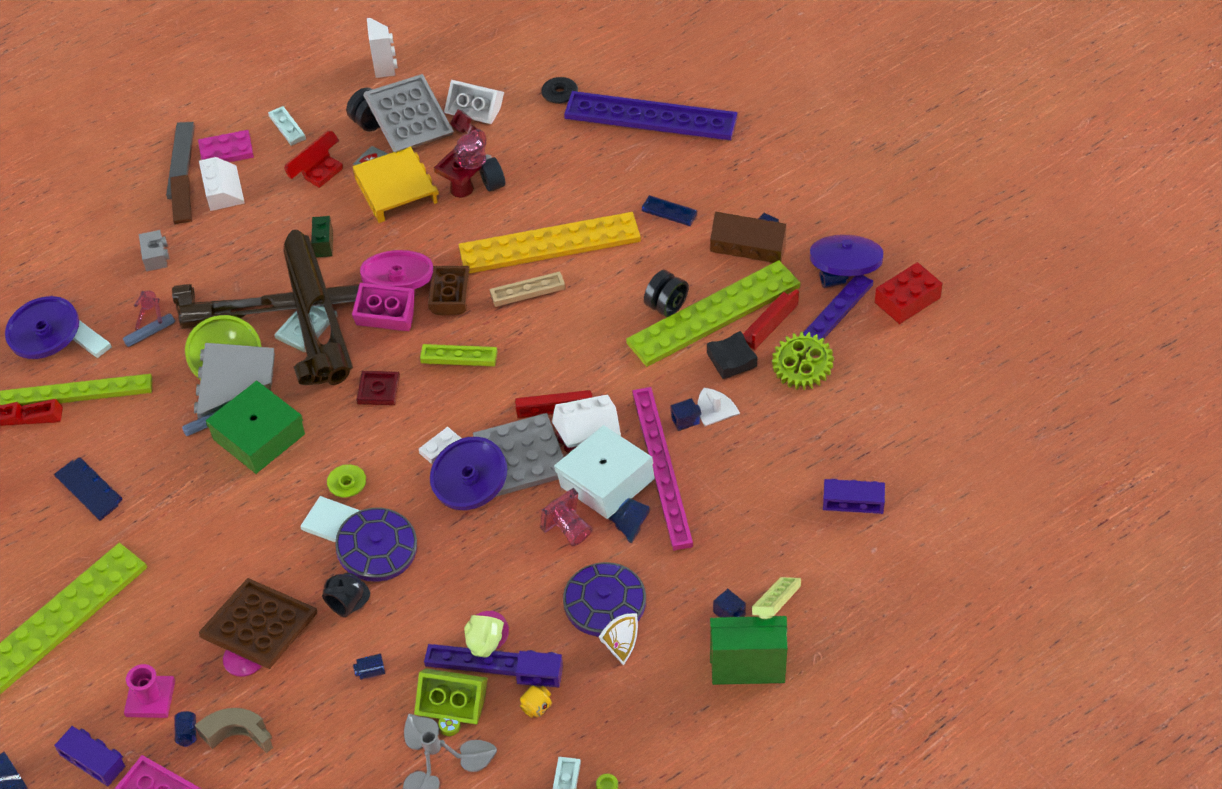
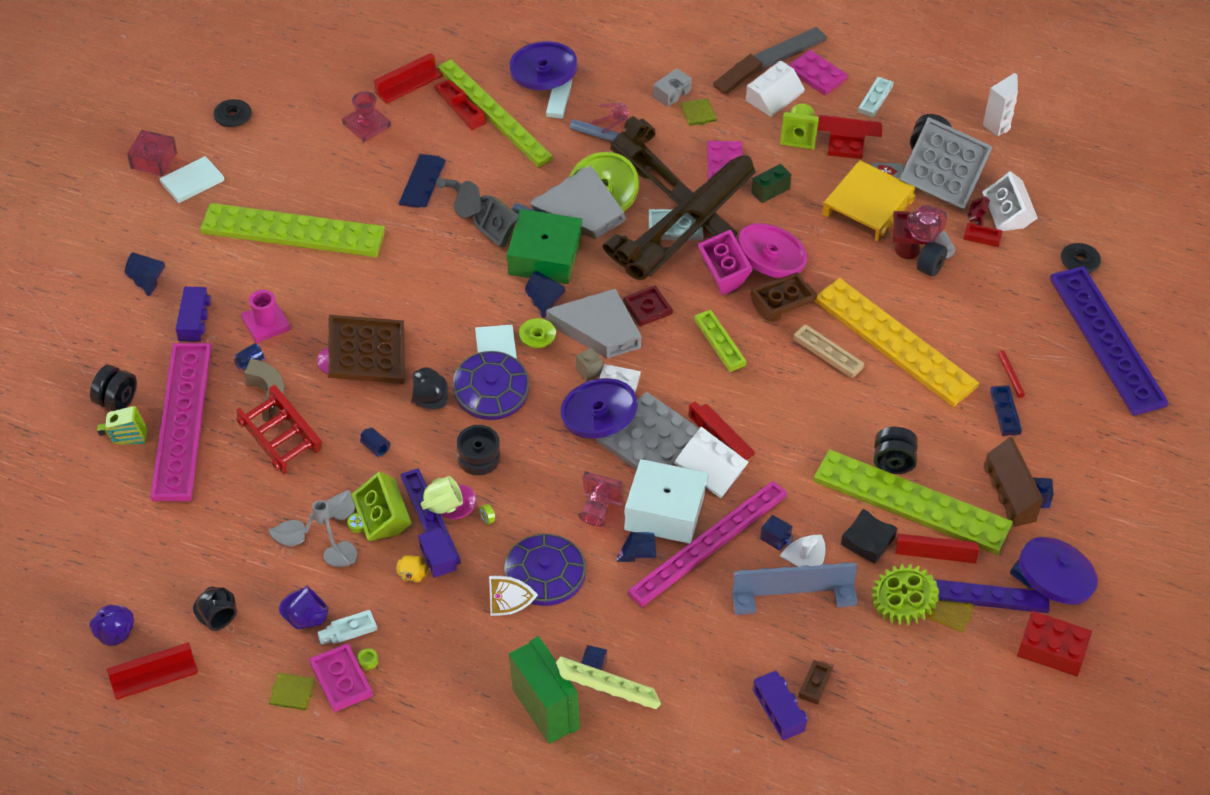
camera: 55 degrees right, 0 degrees up
(193, 448) = (488, 212): none -> dark grey plate
(194, 248) = (698, 112): none -> clear neon green piece
(264, 257) = (720, 153): none -> dark pink plate
(283, 186) = (799, 127): none -> lime plant
(300, 718) = (287, 412): none -> red fence
(302, 455) = (543, 292): none -> clear blue slope
(372, 430) = (598, 323): none -> light grey slope
(412, 459) = (588, 364): none -> dark tan brick
(445, 585) = (478, 449): none -> black wheel
(493, 131) = (983, 234): none -> red tile
(517, 614) = (487, 514): none -> lime tile
(638, 189) = (1011, 374): none -> red bar
(759, 398) = (794, 580): none -> sand blue bracket
(839, 341) = (952, 614): none -> clear neon green piece
(846, 461) = (815, 682): none -> reddish brown plate

